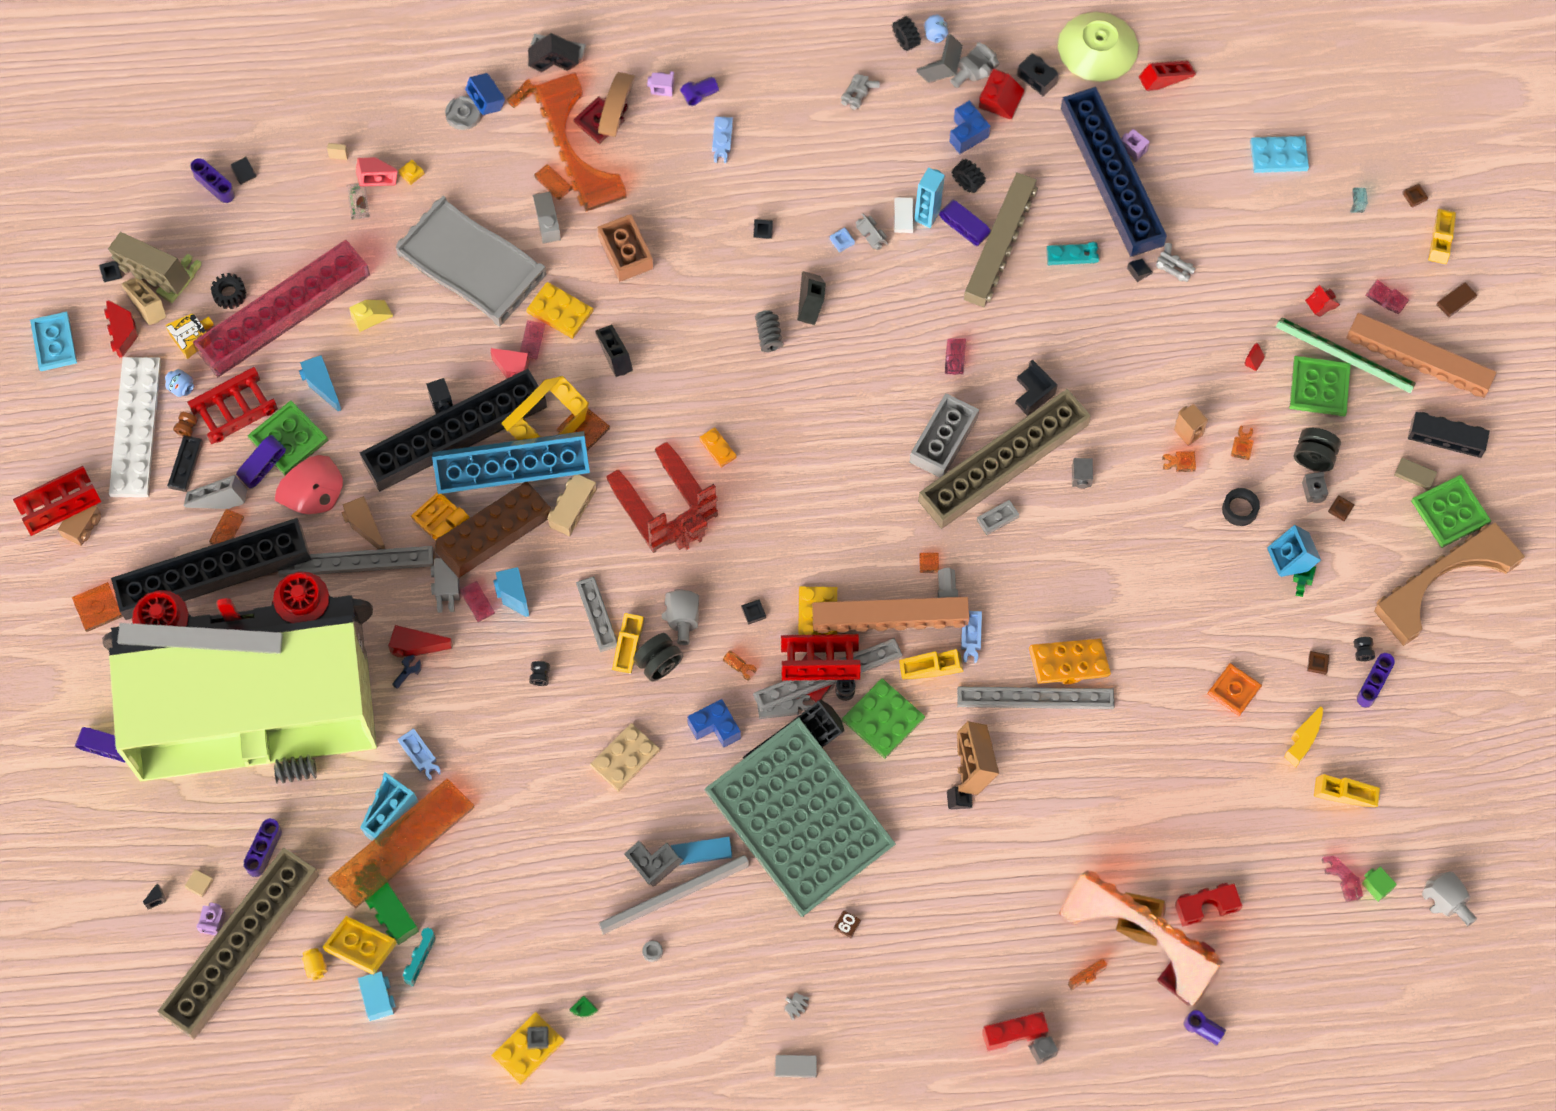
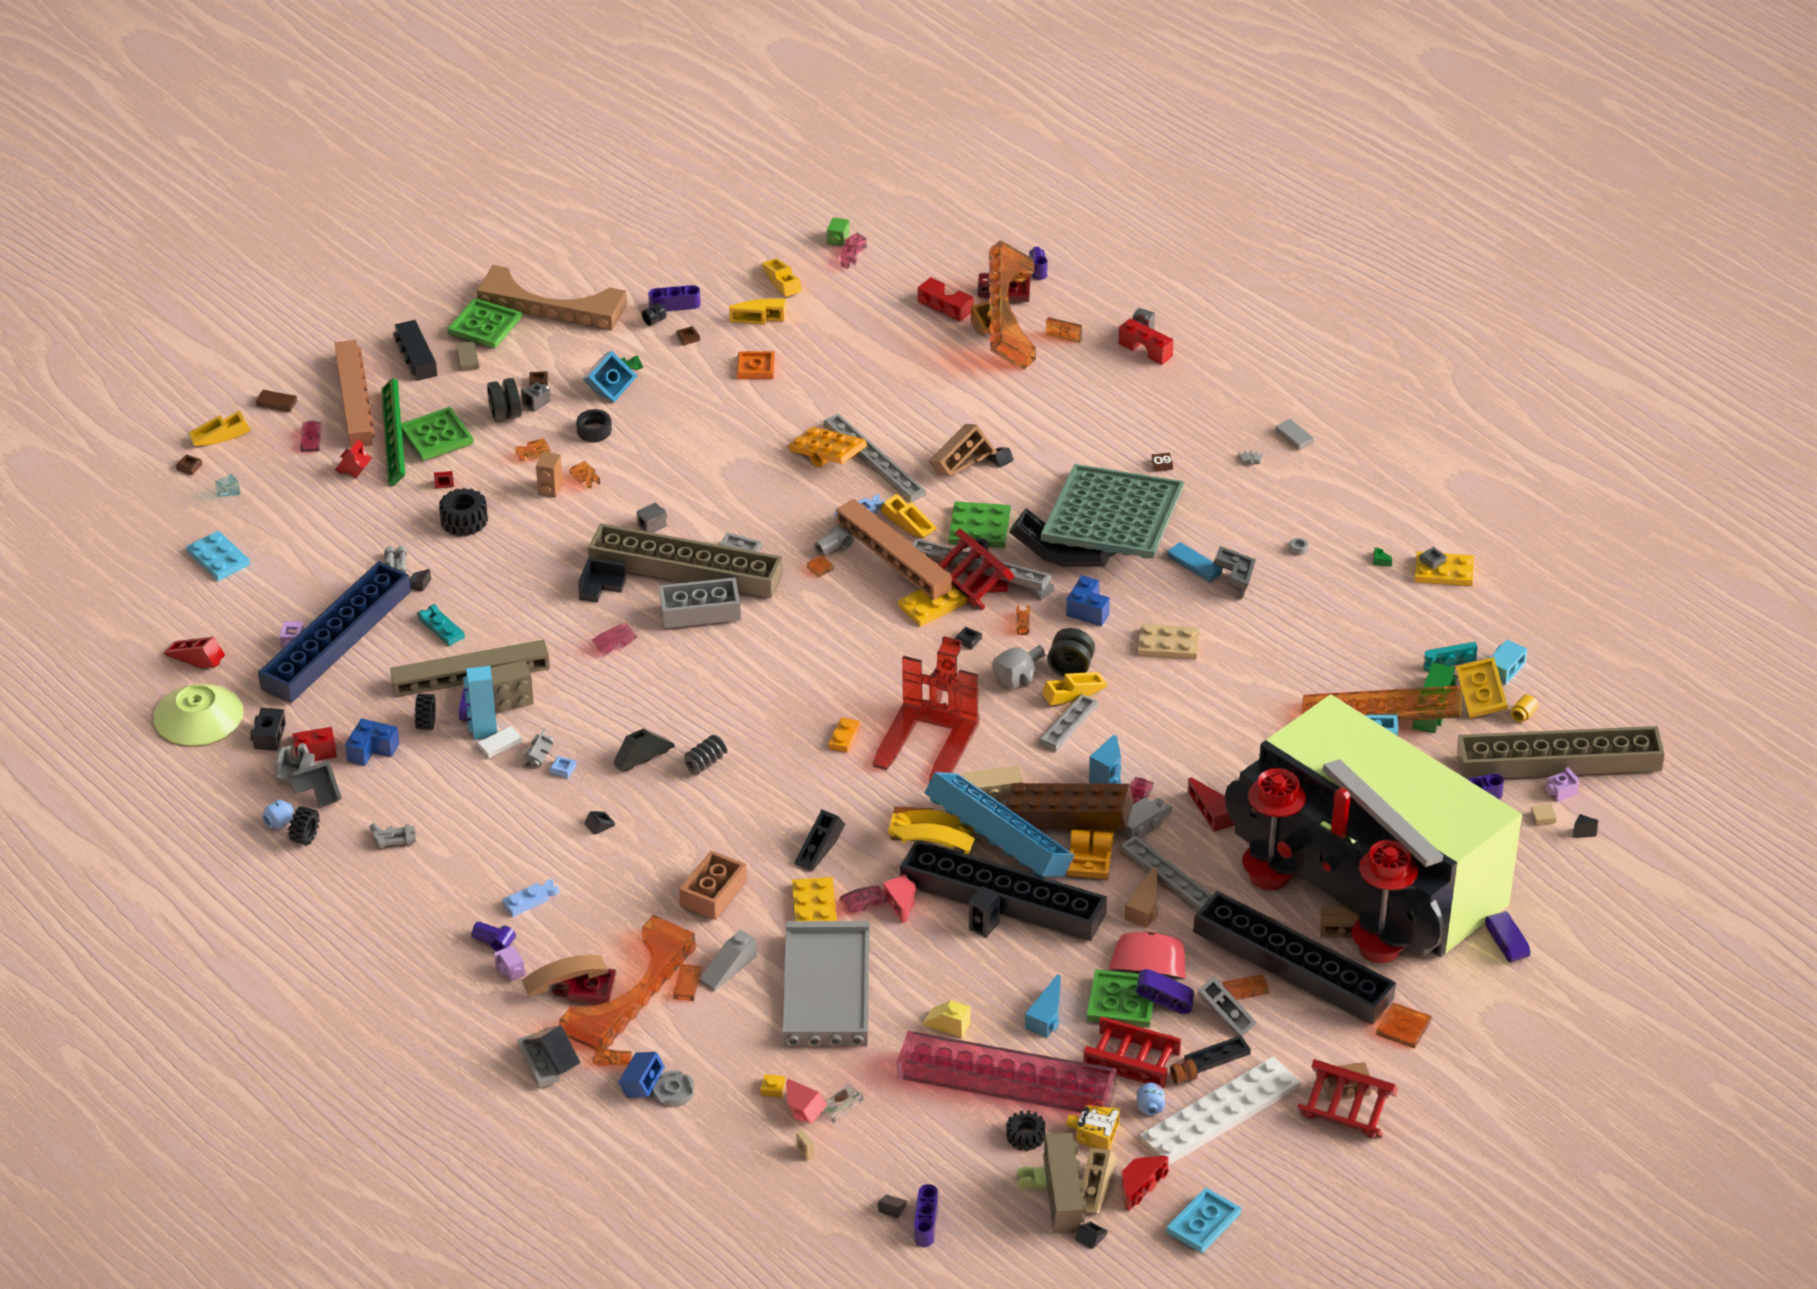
camera: 125 degrees left, 25 degrees down
(539, 673) = (1157, 720): black wheel -> none
(673, 894) = (1264, 558): light grey tile -> none
(948, 244) = (512, 686): none -> dark tan brick
(1194, 327) = (463, 511): none -> black tyre
(1449, 896) = (813, 196): light grey piece -> none

